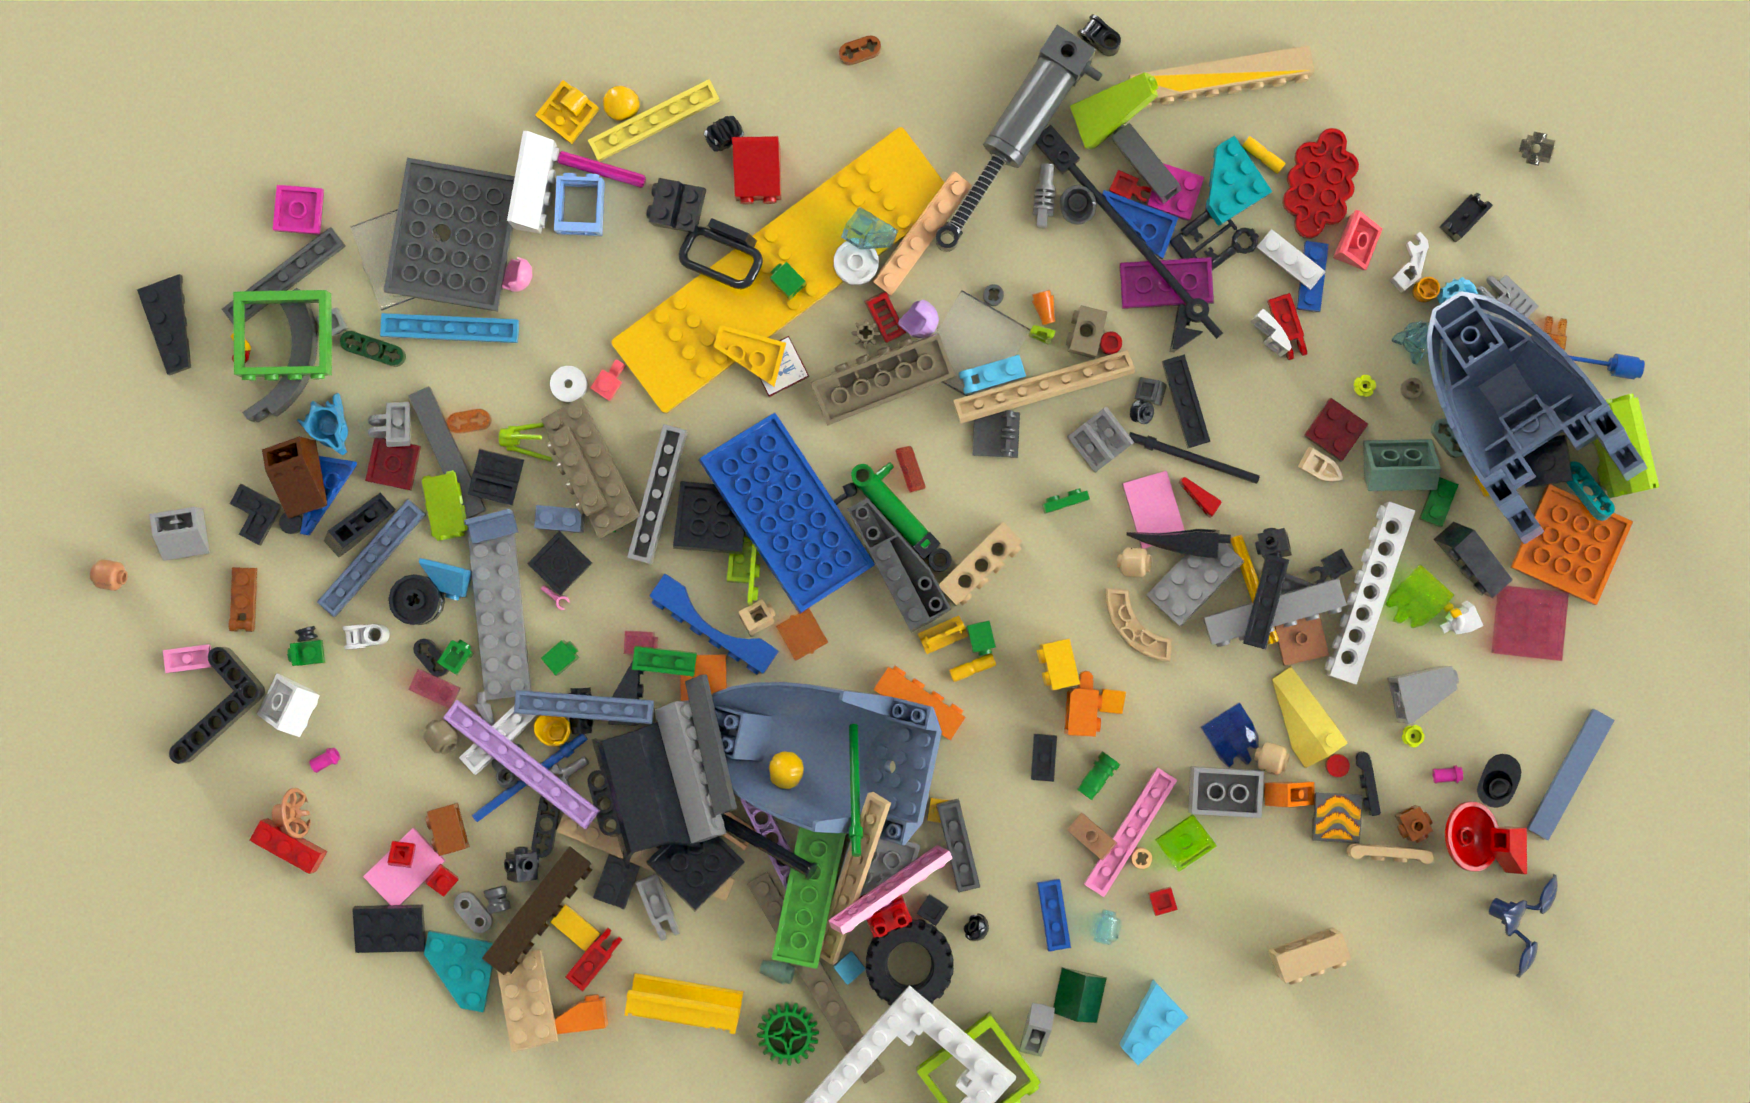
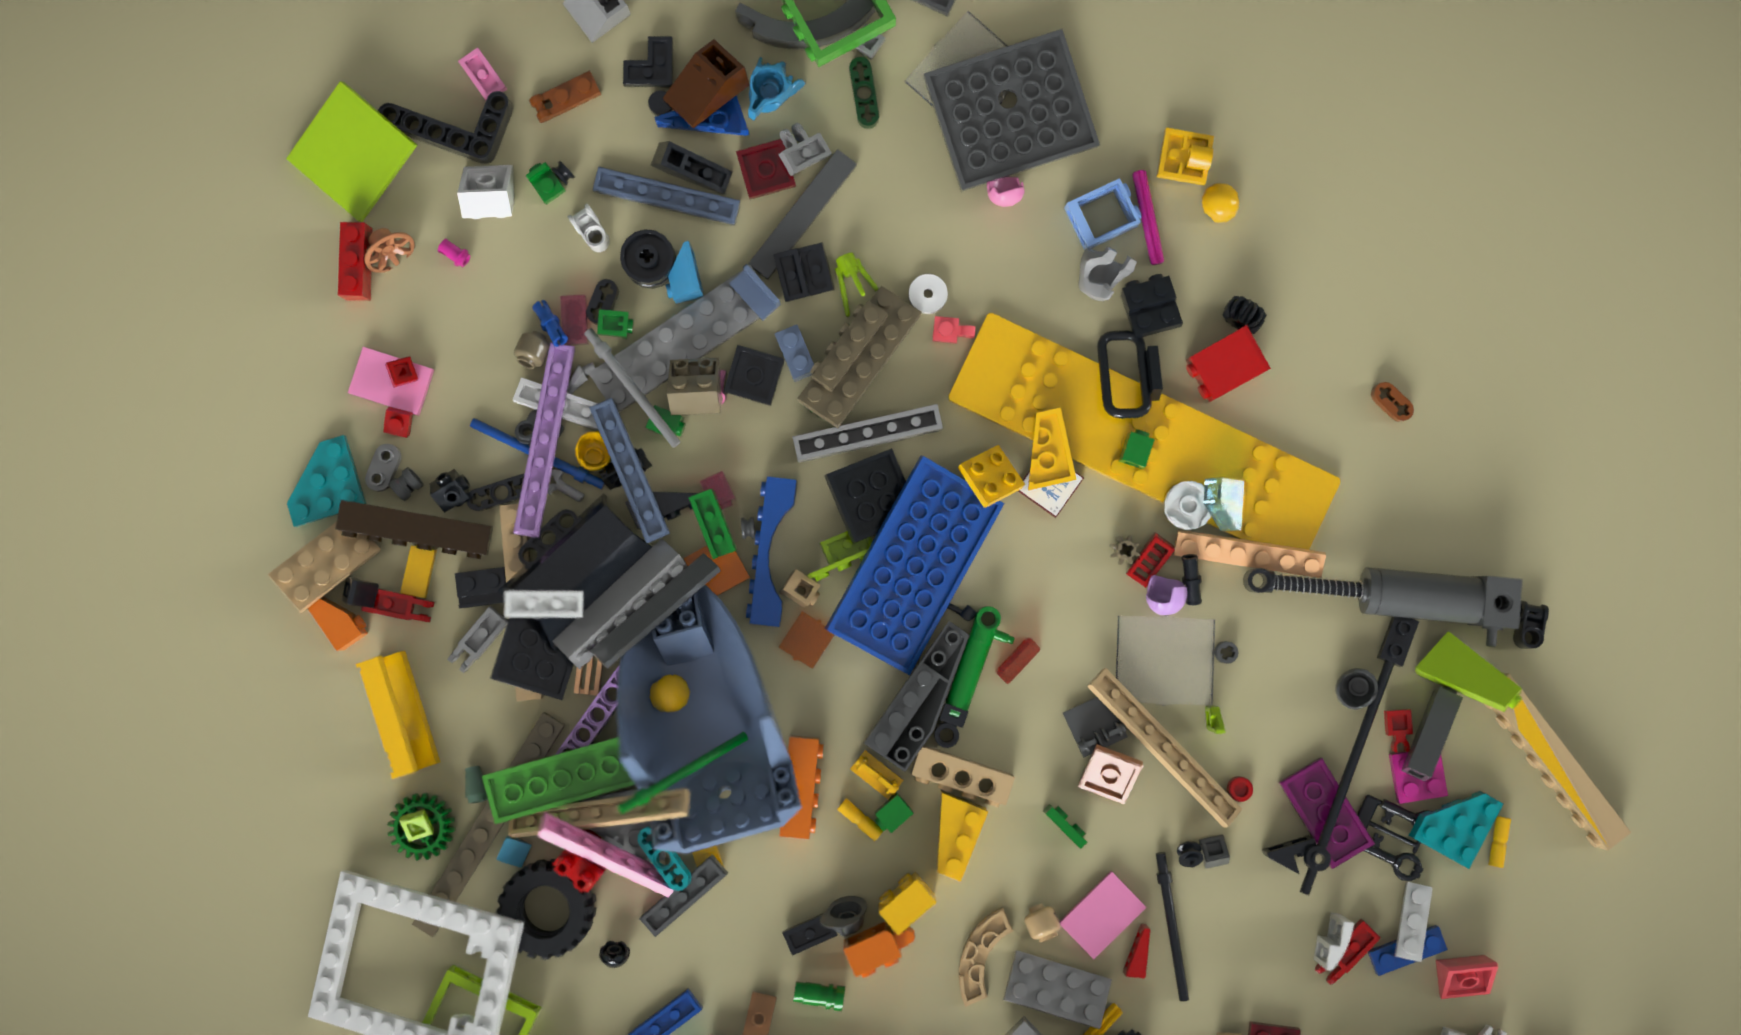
camera: 55 degrees right, 0 degrees up
(194, 801) = (351, 151): none -> lime tile
(389, 928) = (326, 396): black plate -> none
(426, 710) = (550, 323): none -> blue pin
(444, 506) = (751, 238): lime piece -> none
(447, 829) = (447, 402): dark orange brick -> none
(449, 328) = (921, 154): dark azure plate -> none
(469, 426) = (839, 222): clear orange beam -> none
(474, 677) = (604, 351): none -> light grey bar
(532, 183) = (1100, 159): white slope -> none
(542, 616) = (694, 386): none -> dark tan slope
(566, 984) = (359, 592): none -> black slope
(627, 232) = (1101, 273): none -> light grey piece
(654, 120) = (1221, 242): light yellow plate -> none
(656, 831) = (543, 603): none -> white plate
(683, 634) = (748, 527): none -> dark grey bush
(746, 411) = (991, 476): none -> yellow plate
(769, 847) = (587, 718): black axle -> none
(784, 1034) = (416, 825): none -> lime tile
(882, 377) = (1091, 588): dark tan plate -> none
(918, 291) = (1191, 579): none -> black pin
(932, 909) = (610, 902): black plate -> none
(936, 848) = (661, 868): none -> teal beam
(993, 374) = (1150, 692): medium azure plate -> none
(1026, 593) = (958, 833): none -> yellow wedge
(1042, 442) = (1110, 774): none -> plate
(1043, 720) = (845, 915): none -> dark grey piece
(1044, 195) = (1348, 651): light grey hinge -> none
(1044, 306) = (1243, 706): orange cone -> none
(1093, 319) = (1254, 760): dark tan brick -> none
(1100, 439) = (1142, 828): light grey slope -> none
(1112, 701) = (900, 972): light orange slope -> none
(1149, 224) = (1375, 767): blue wing -> none
(1186, 401) = (1222, 891): black plate -> none
(1189, 542) = (1090, 969): black piece -> none
(1320, 183) = (1501, 911): red plate -> none

